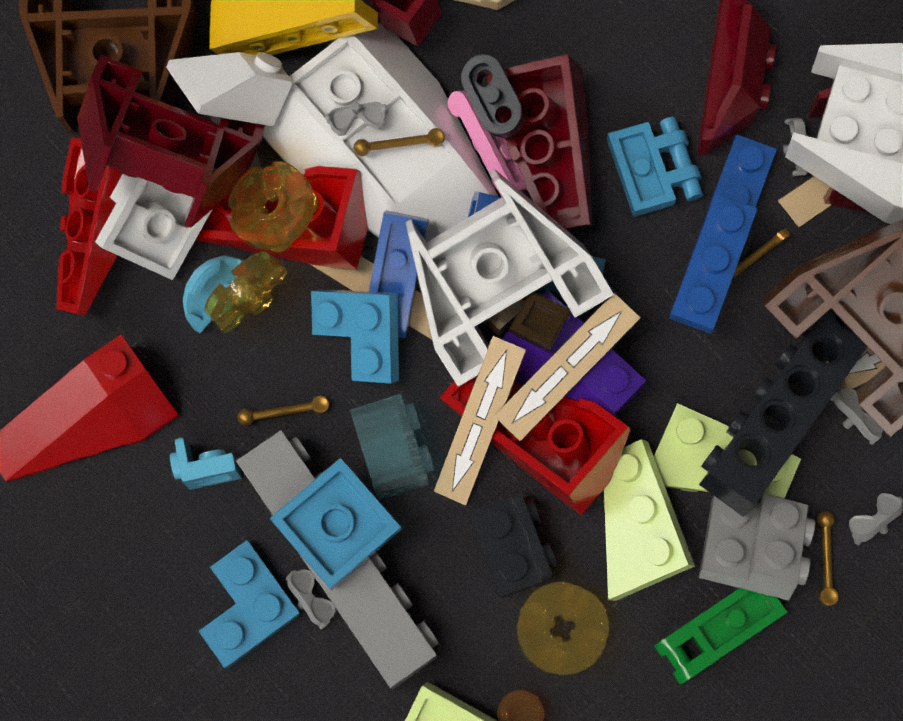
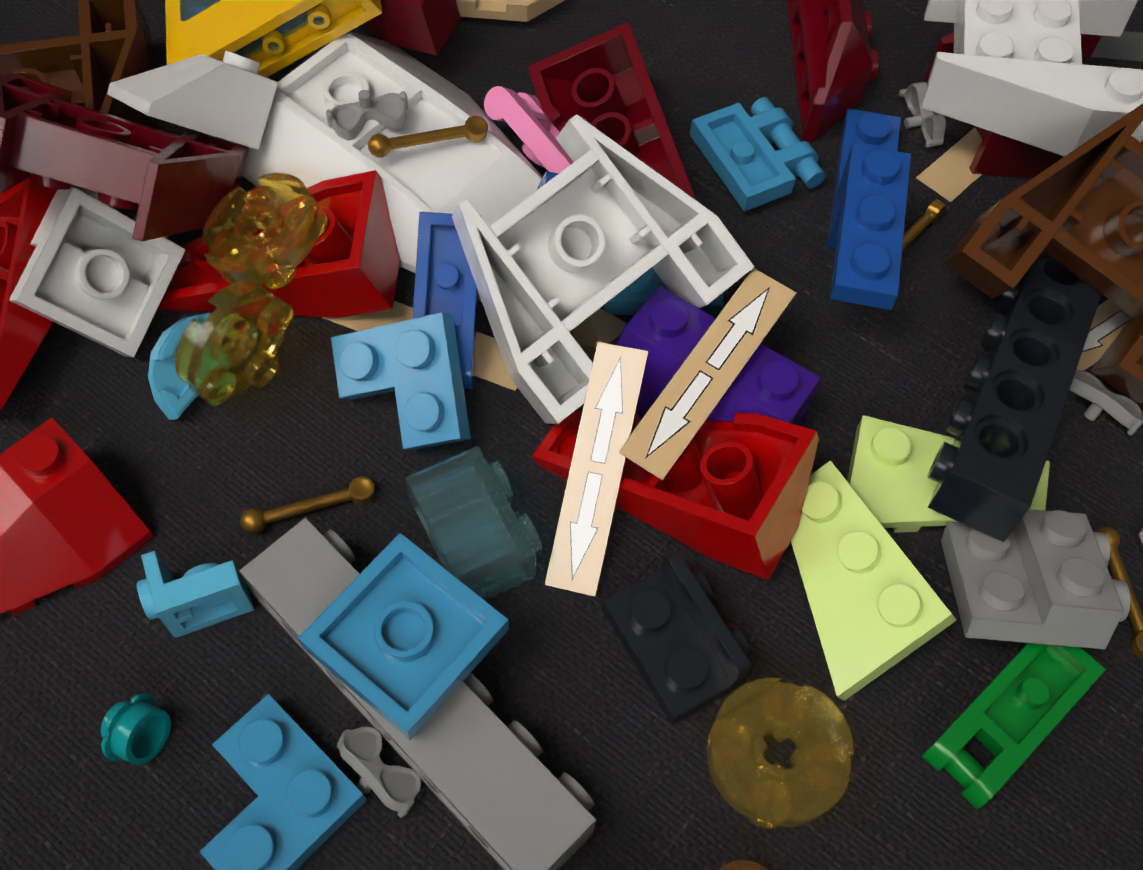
camera: 15 degrees left, 15 degrees down
(163, 549) = (134, 730): none -> teal plate
(495, 98) = (546, 83): black plate -> none
(539, 321) = (659, 316): dark brown tile -> none

